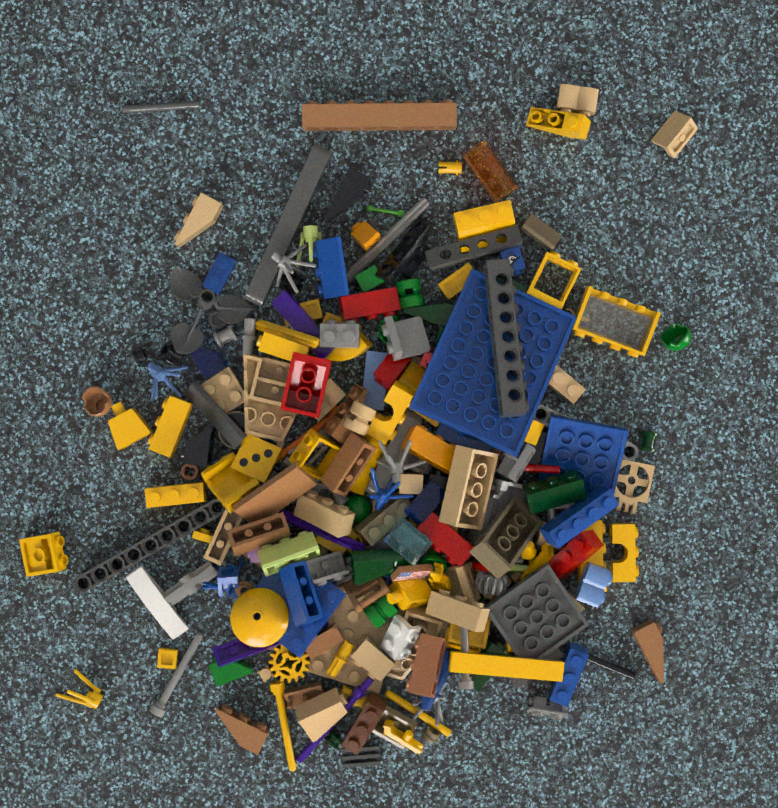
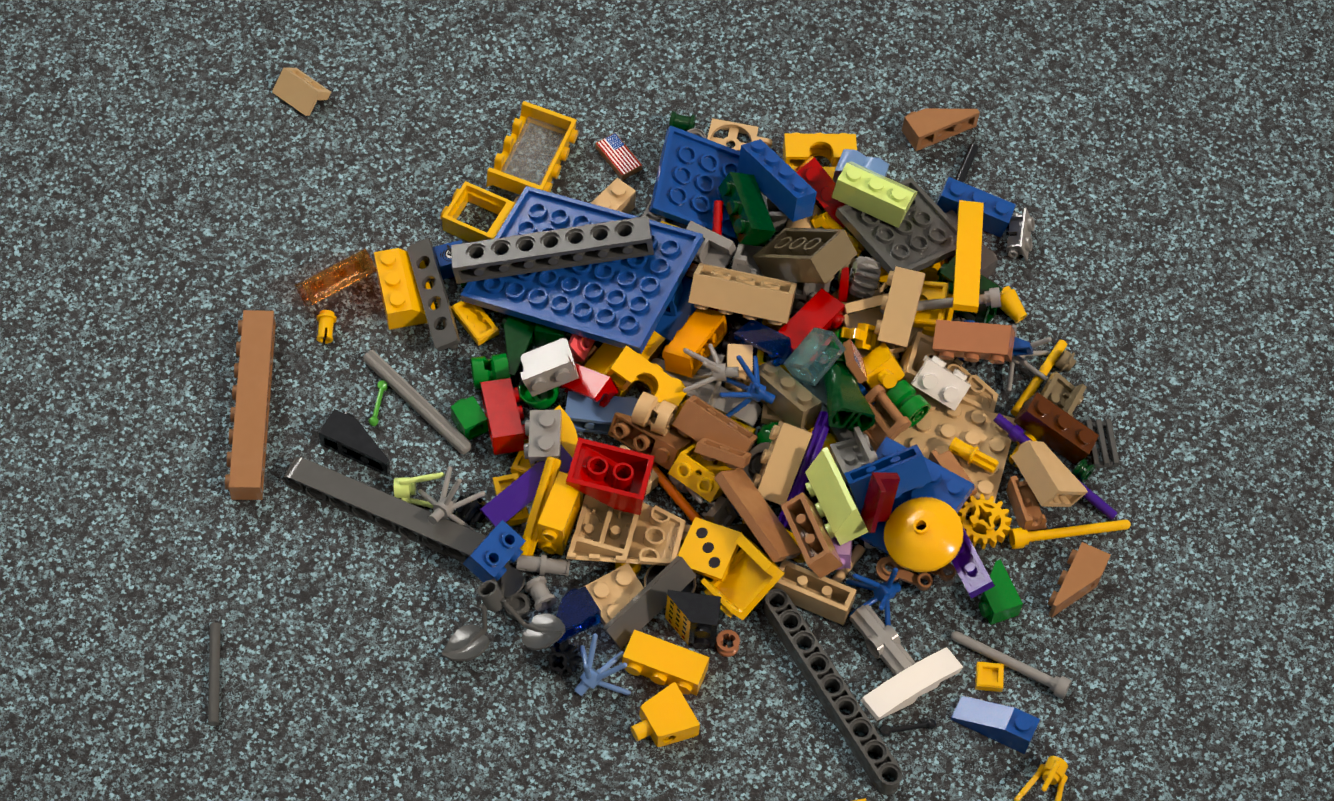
camera: 90 degrees left, 30 degrees down
(97, 401) = (630, 755): medium nougat hair -> none
(129, 660) = (997, 722): none -> blue slope
(130, 614) = (886, 730): none -> black hinge
(140, 357) = (567, 701): black bush -> none
(175, 494) = (760, 656): yellow brick -> none
(202, 216) = (372, 618): tan slope -> none
(203, 534) = (816, 621): yellow plate -> none
(219, 273) = (452, 602): blue plate -> none
(227, 578) = (872, 578): blue panel -> none
(247, 301) = (494, 552): none -> blue brick
(265, 673) = (1001, 552): tan piece -> none
(277, 584) = (879, 499): none -> dark red panel
(324, 469) = (713, 451): none -> medium nougat plate
(330, 268) = (462, 447): blue slope -> none
(364, 235) = (411, 417): light orange slope -> none
(372, 658) = (971, 415): tan brick -> none
(401, 737) = (1073, 385): yellow piece -> none
(407, 254) = (435, 371): black bracket -> none
(485, 695) = (1012, 305): none -> yellow cone
(540, 232) = (418, 228): dark tan panel -> none
(559, 122) = (277, 207): yellow slope -> none
(563, 595) = (873, 194): none -> yellowish green slope
(577, 99) = (250, 187): tan brick -> none
(617, 390) = (618, 156): none -> tile
(676, 337) = (554, 91): green hair -> none

